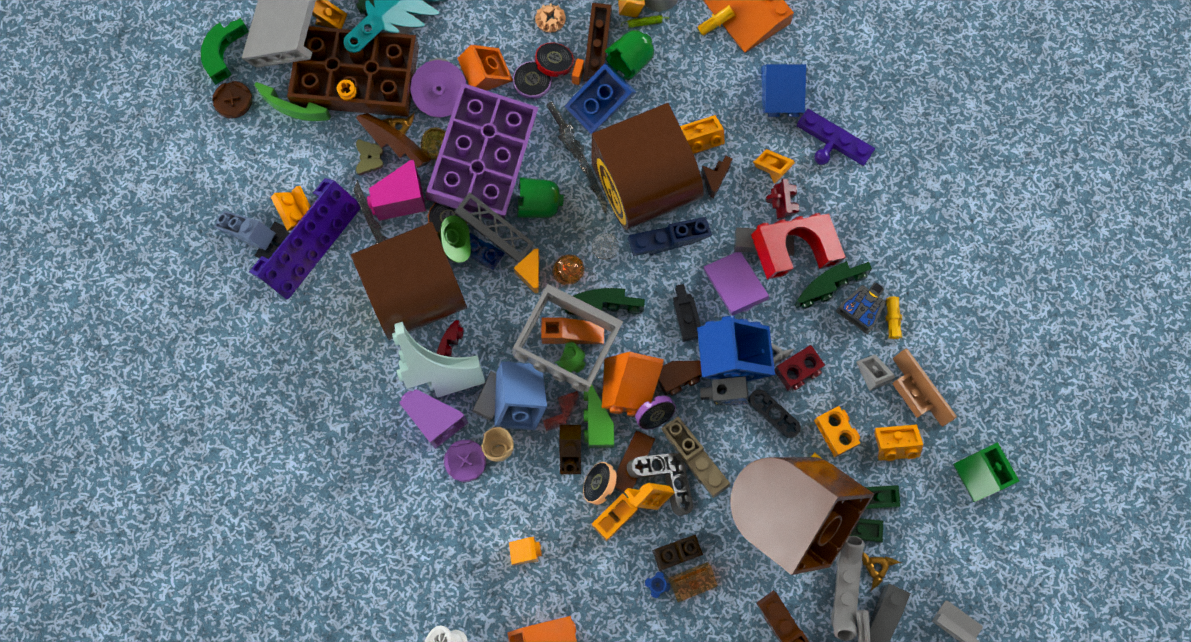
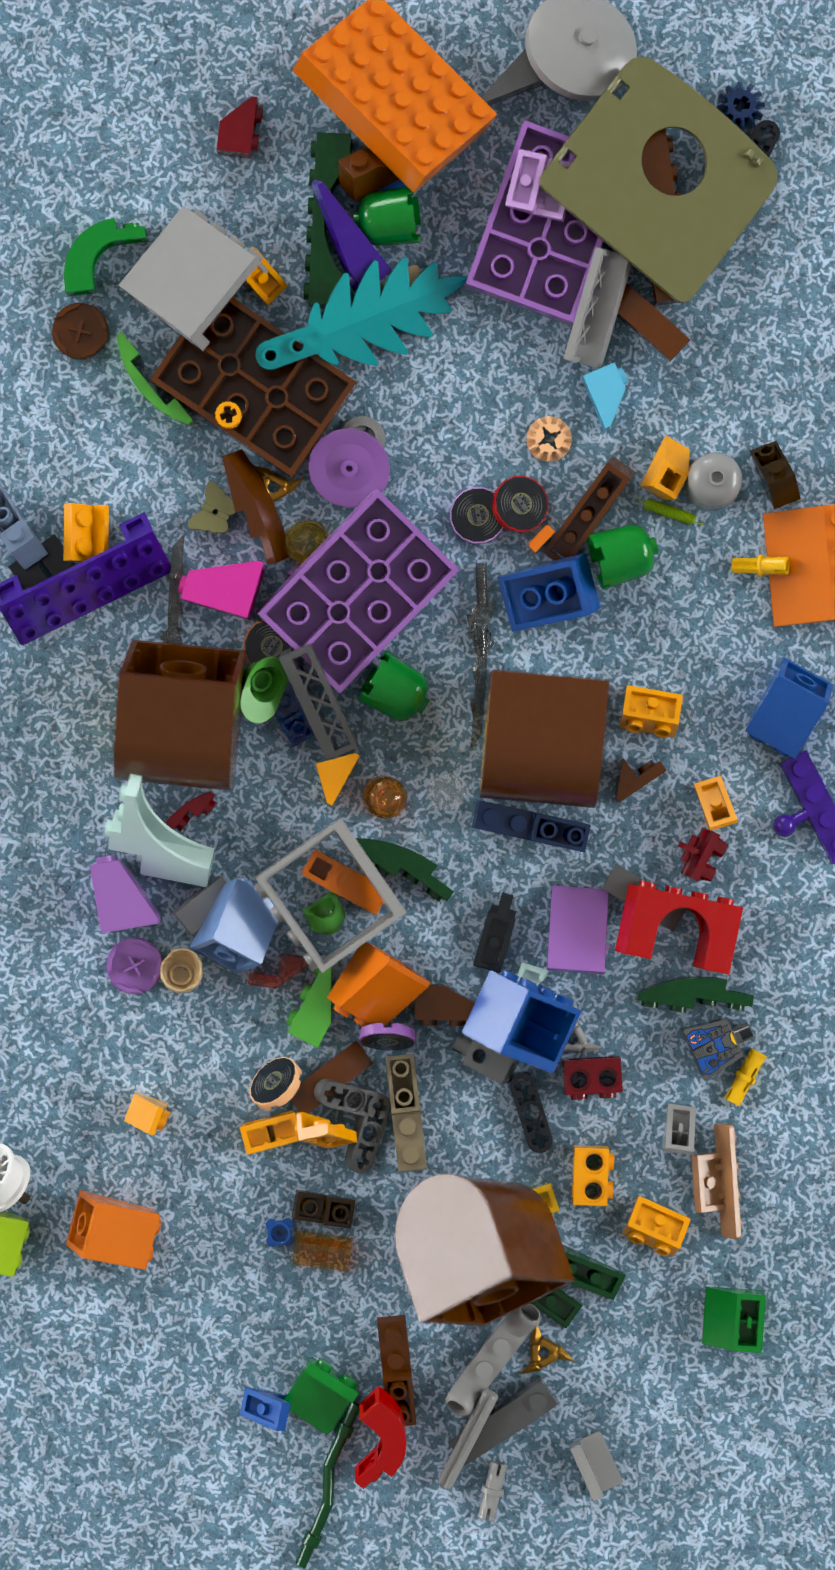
camera: 30 degrees right, 15 degrees up
(484, 67) = (424, 468): orange slope -> none
(570, 449) = (264, 1021): dark brown slope -> none

